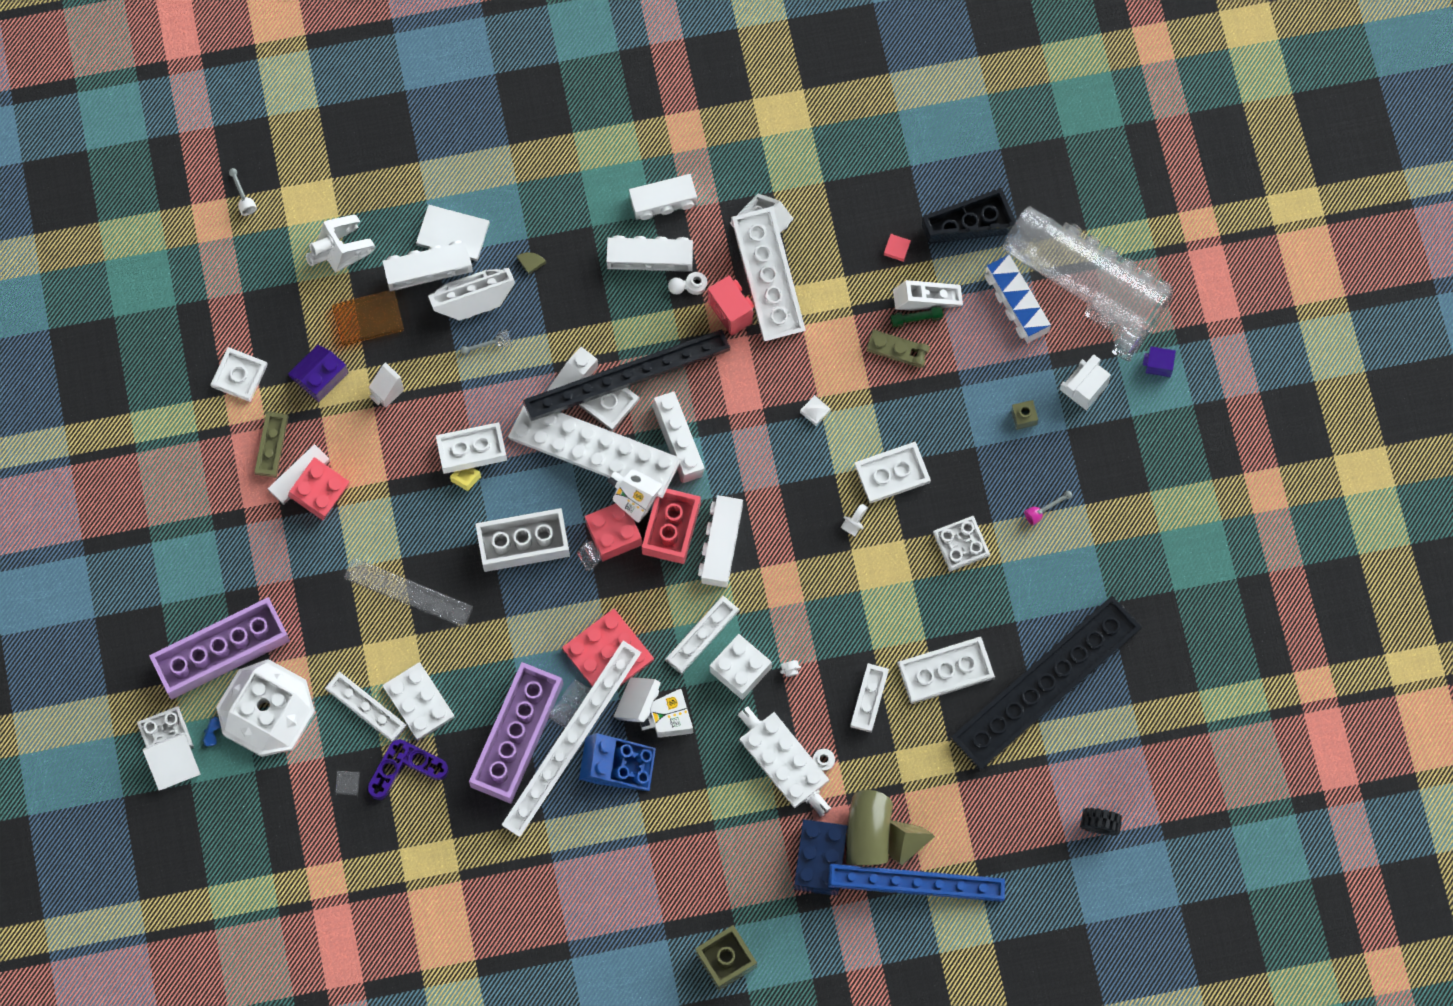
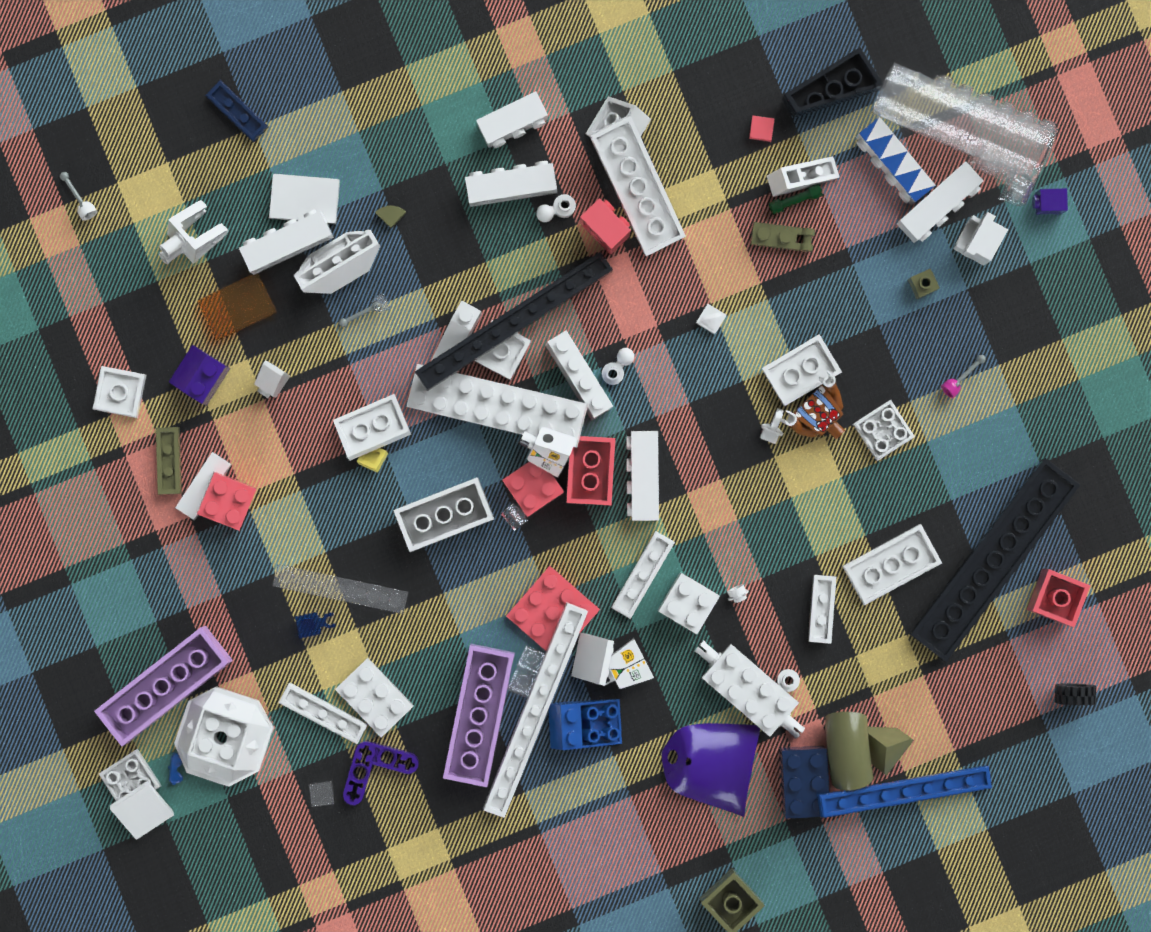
camera: 15 degrees left, 15 degrees up
(372, 620) = (310, 624): none -> clear blue plate
(407, 144) = (237, 111): none -> dark blue tile
(725, 430) = (624, 357): none -> white plate
(736, 829) = (719, 763): none -> dark purple piece
(901, 512) = (818, 411): none -> torso
(1053, 343) = (940, 202): none -> white brick
(1100, 727) = (1058, 597): none -> coral brick

